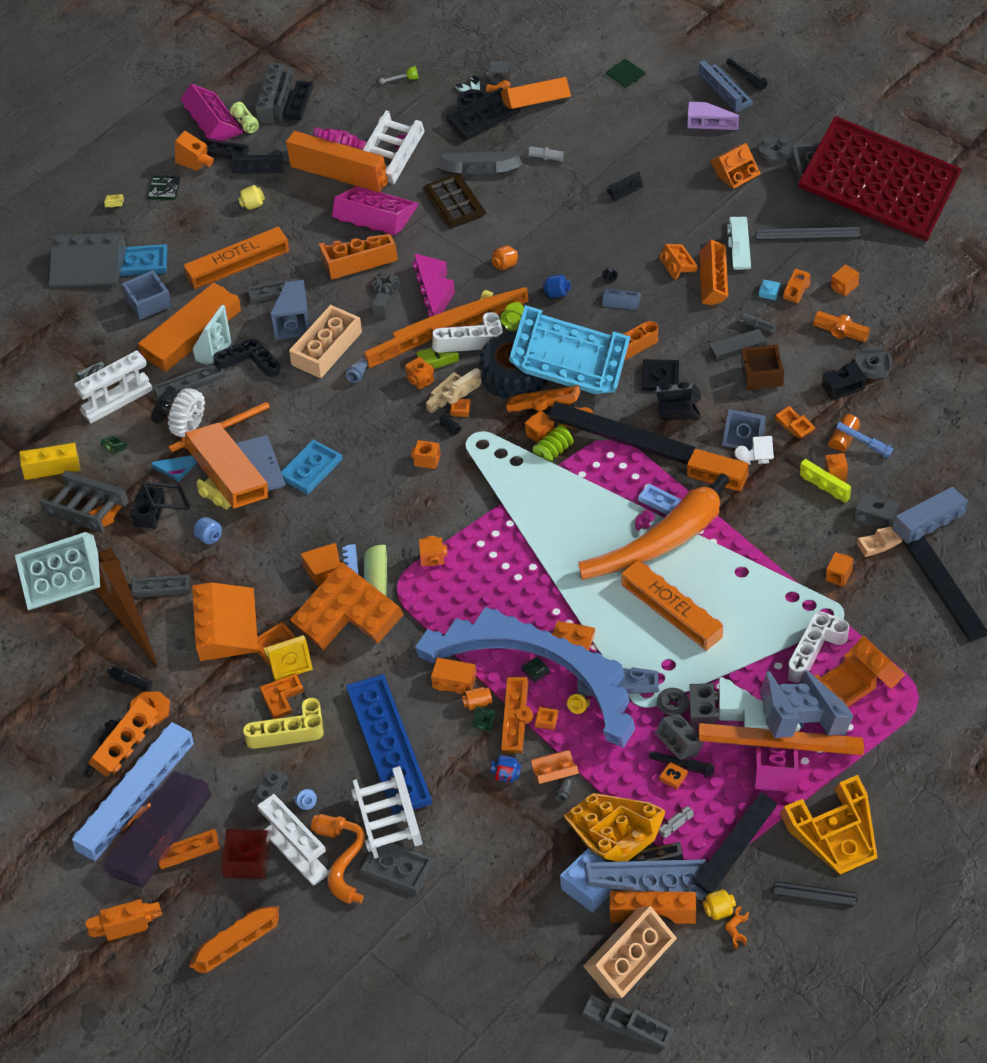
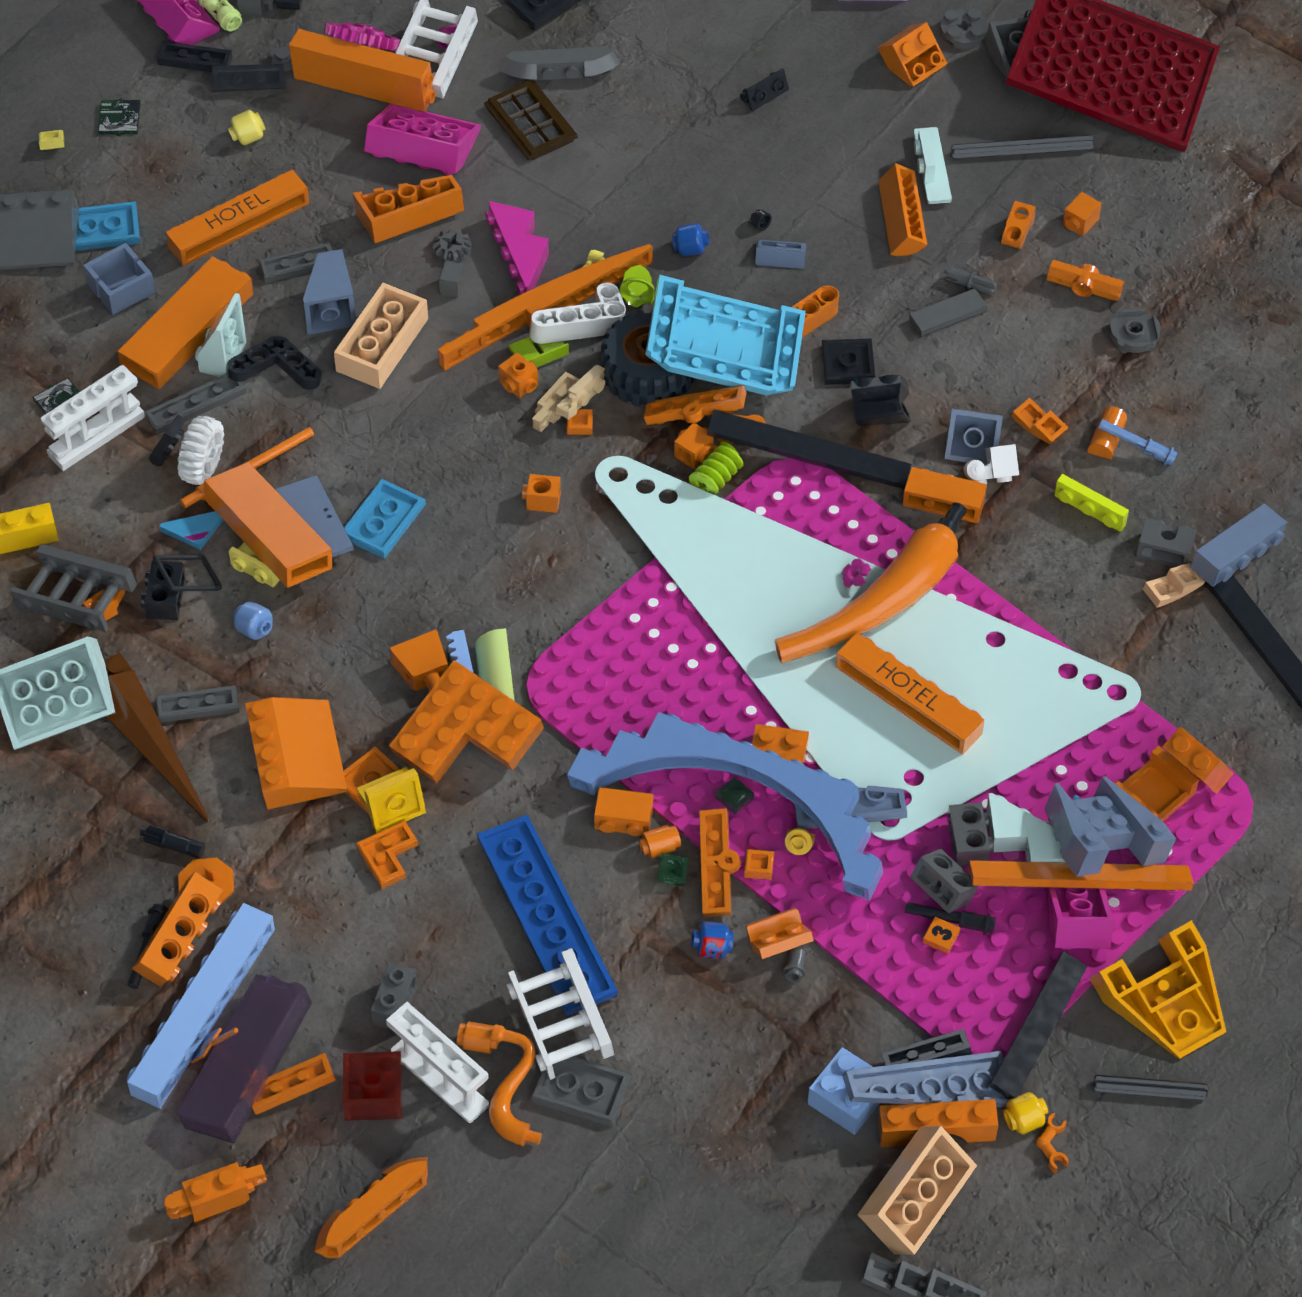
camera: 10 degrees left, 5 degrees up
(113, 444) = (102, 500): clear green tile -> none
(191, 152) = (154, 64): orange torso -> none
(287, 730) = (359, 907): light yellow beam -> none
(305, 799) = (443, 1001): light blue plate -> none
(356, 371) = (428, 377): sand blue cone -> none
(432, 551) = (571, 634): orange brick -> none
(447, 421) = (569, 447): black pin -> none
(504, 258) = (613, 200): orange head -> none
(546, 153) = (650, 46): light grey pin -> none
(615, 825) = (872, 1011): light orange wedge -> none
(658, 499) = (872, 543): light blue plate -> none
(675, 695) = (927, 820): dark grey gear -> none
(676, 821) = (953, 1000): light grey axle -> none
(677, 260) = (850, 194): orange bracket -> none
(762, 367) = (987, 344): reddish brown piece -> none
(769, 289) = (980, 231): medium azure plate -> none
(821, 628) = (1104, 742): white beam -> none
(837, 466) = (1105, 481): orange brick -> none
(839, 569) = (1126, 628): orange brick -> none
(849, 376) = (1098, 359): black brick -> none

